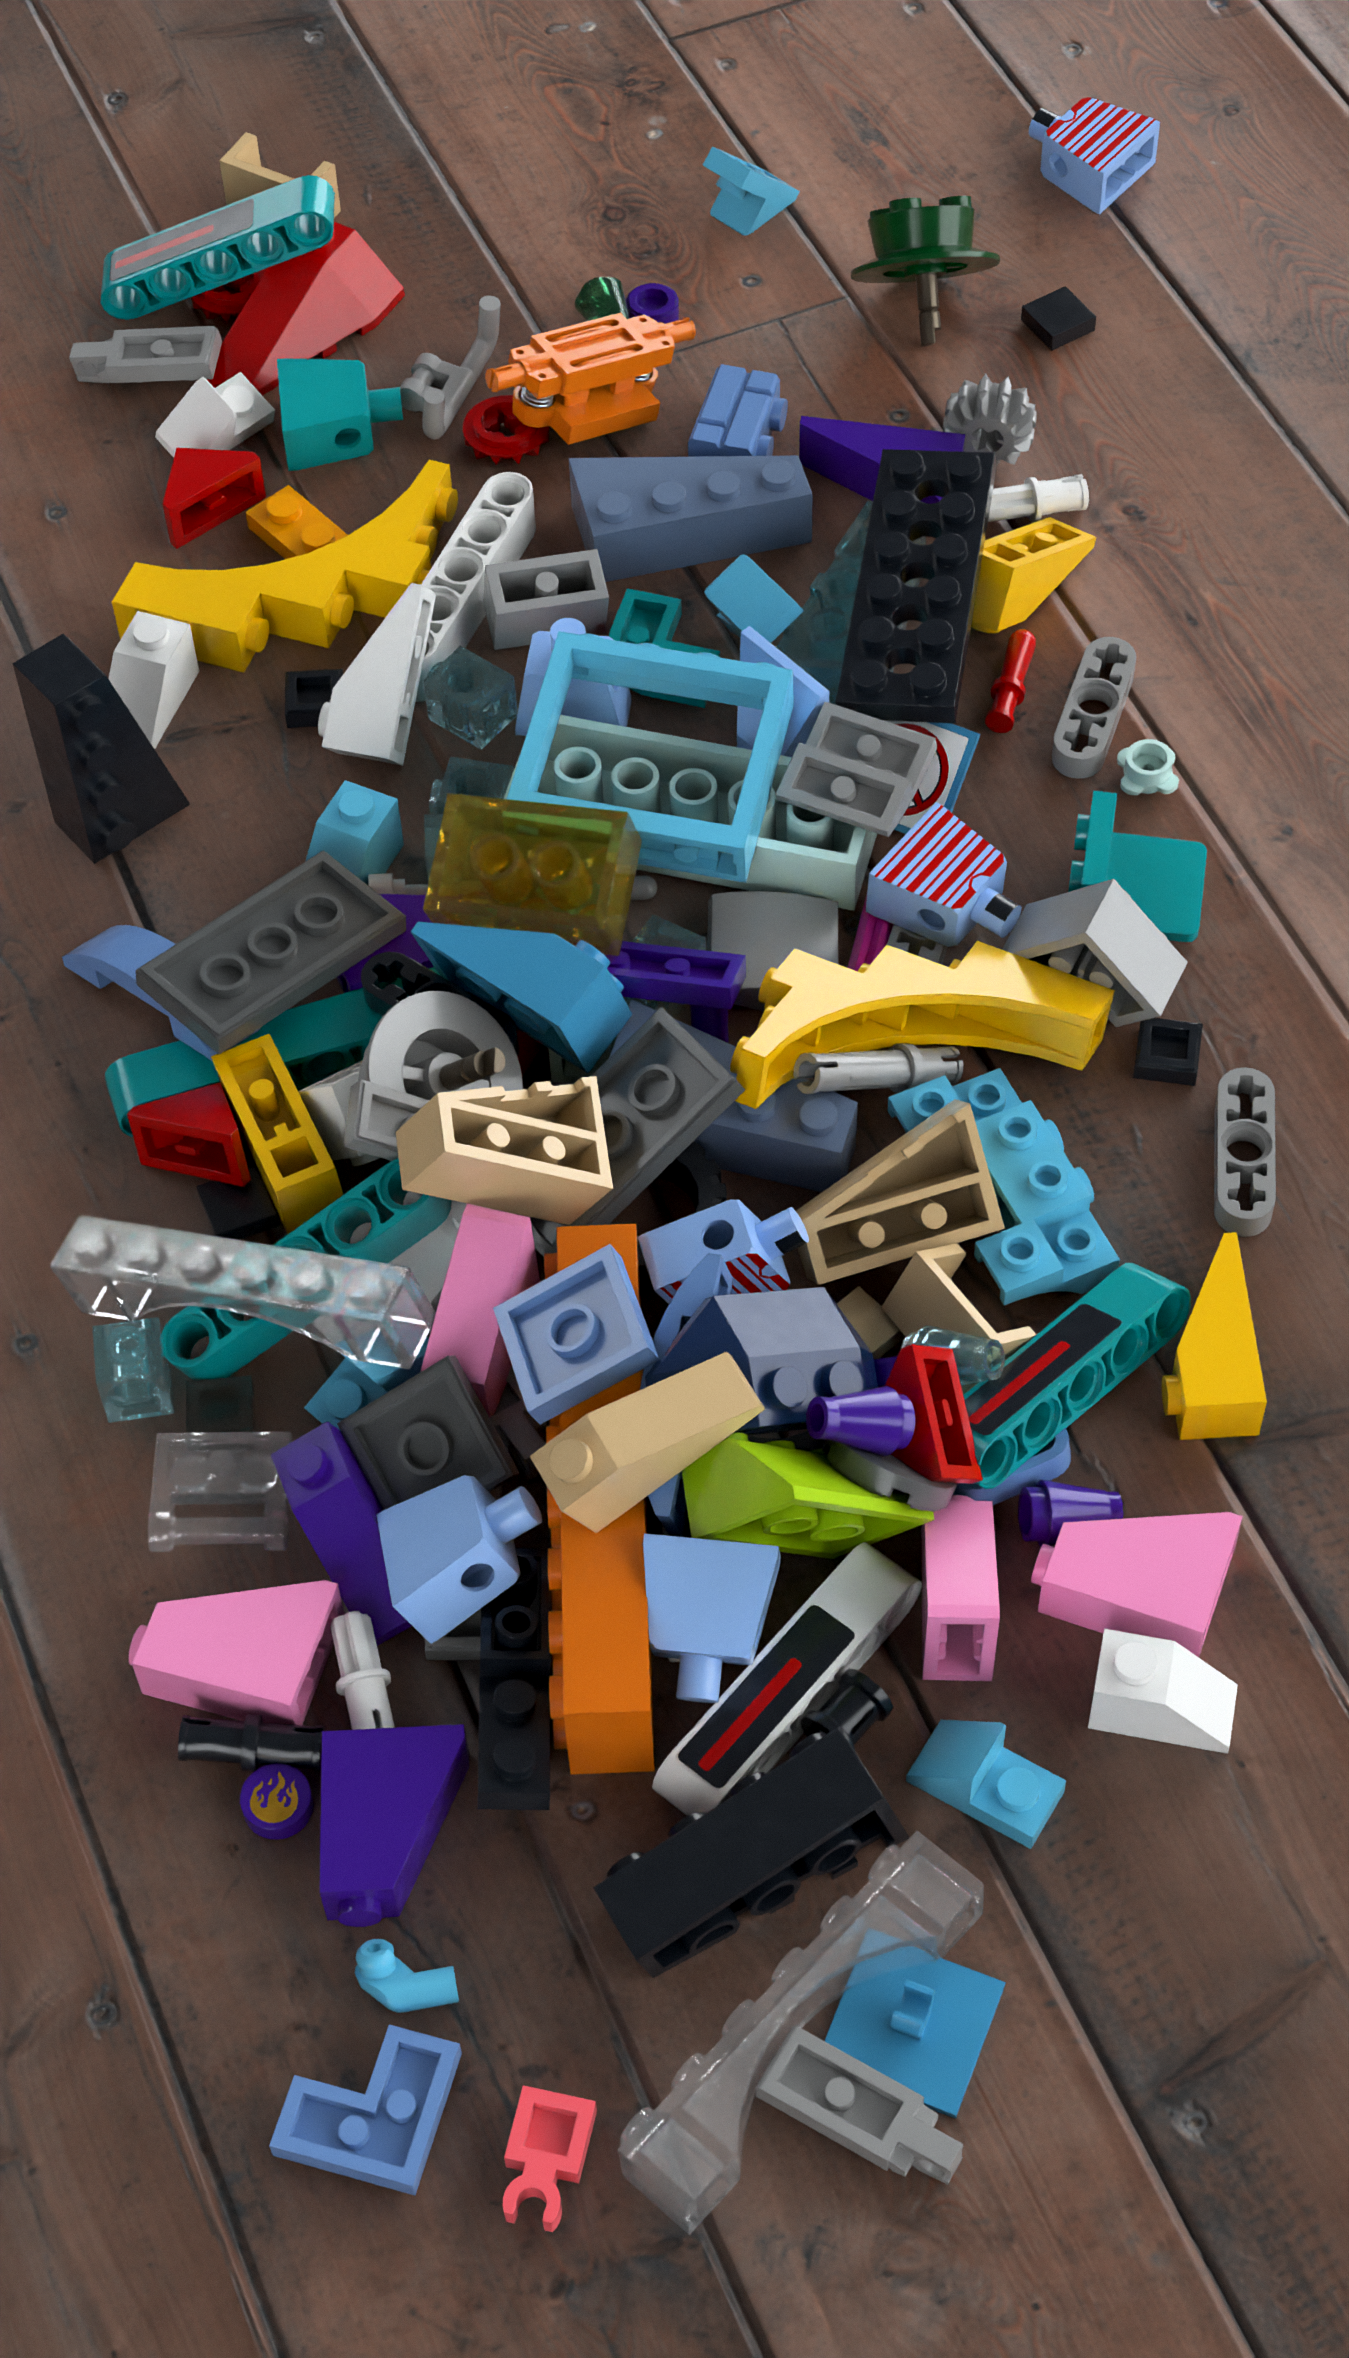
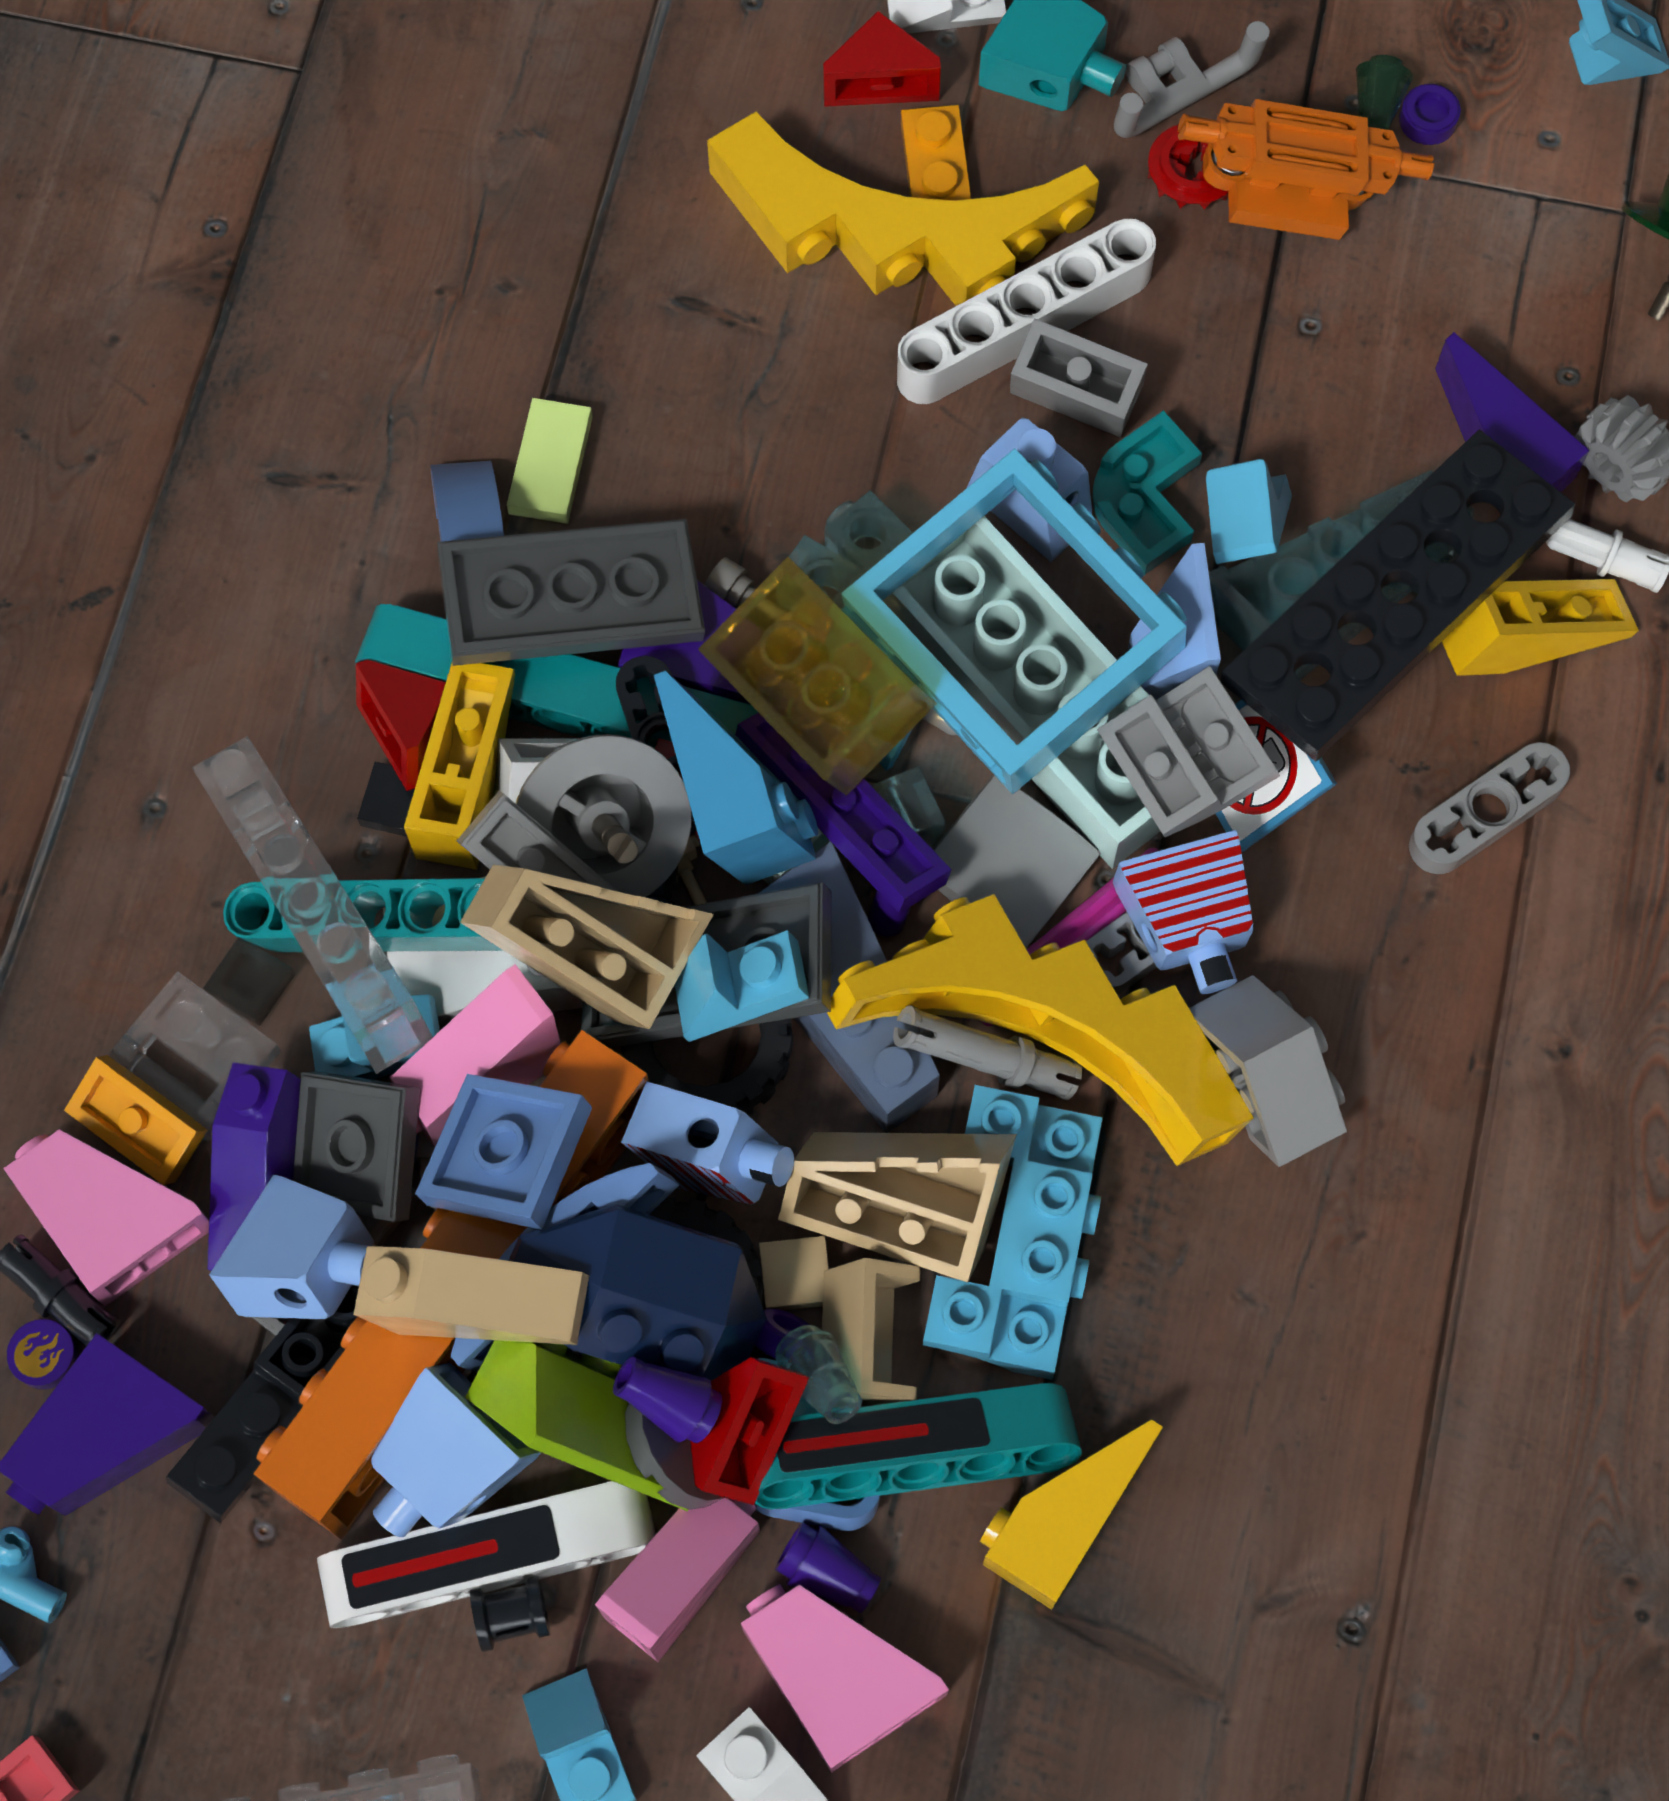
camera: 35 degrees right, 15 degrees up
(91, 752) = (564, 301): black wedge -> none
(132, 1370) = (194, 899): clear light blue brick -> none
(154, 670) = (689, 237): white slope -> none
(158, 892) = (549, 460): none -> yellowish green tile
(209, 1563) = (135, 1120): none -> light orange plate
(306, 694) = (822, 341): black tile -> none
(359, 830) = (736, 518): medium azure slope -> none
(361, 1673) = (174, 1302): white axle -> none
(378, 691) = (853, 388): white slope -> none
(470, 697) = (944, 455): clear light blue brick -> none
(654, 1119) = (738, 985): none -> medium azure slope
(687, 509) = (1278, 360): sand blue wedge -> none
(739, 414) = (1397, 298): medium blue brick -> none
(748, 1853) = (340, 1677): black wedge -> none
(1009, 688) = (1427, 737): red piece -> none
(1147, 768) = (1488, 889): light aqua plate -> none
(1156, 872) = (1379, 1012): teal bracket -> none
(1168, 1051) = (1271, 1198): black tile -> none
(1230, 1171) = (1271, 1294): light grey beam -> none

